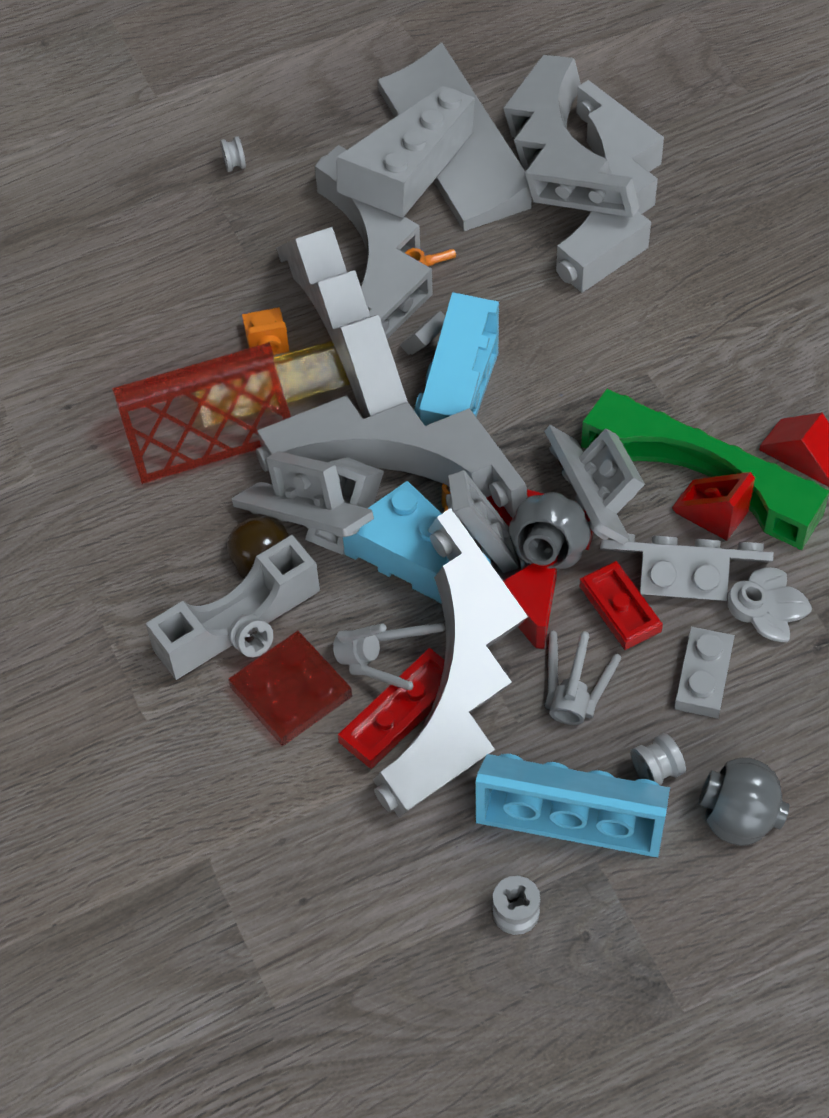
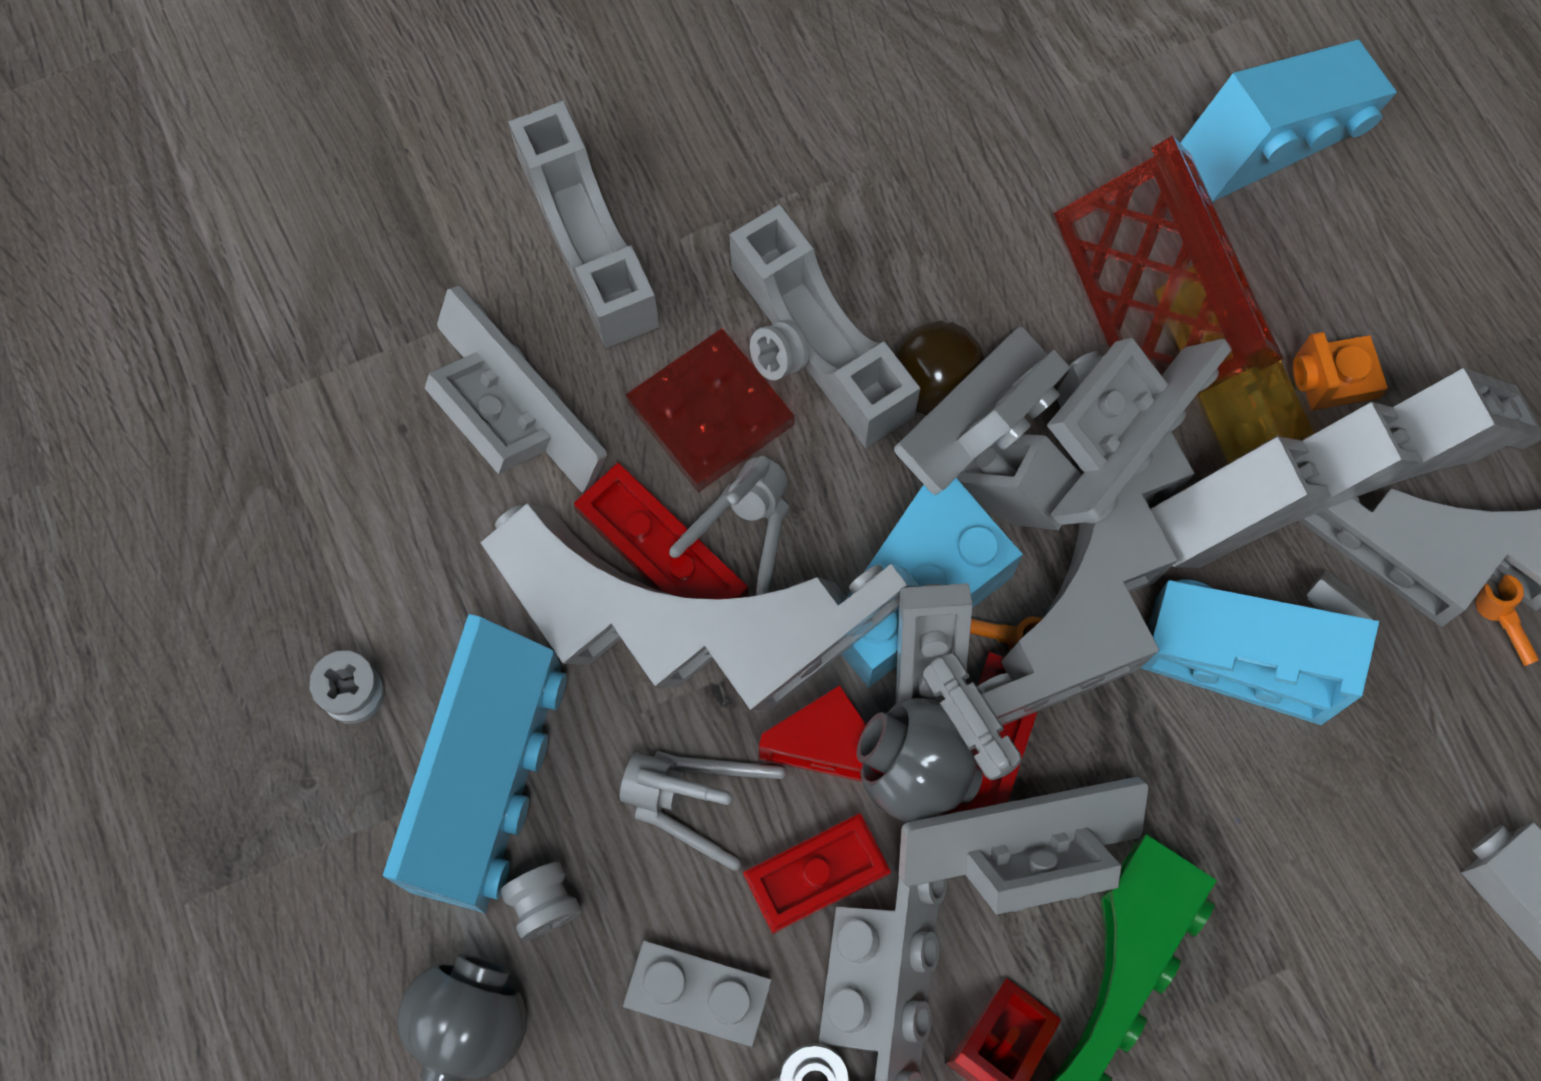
camera: 90 degrees right, 15 degrees up
(83, 346) = (1286, 113): none -> medium azure wedge
(100, 788) = (577, 215): none -> light grey arch
(283, 817) = (504, 401): none -> light grey bracket
(320, 416) = (1122, 417): none -> light grey bracket
(525, 490) = (972, 717): none -> light grey axle

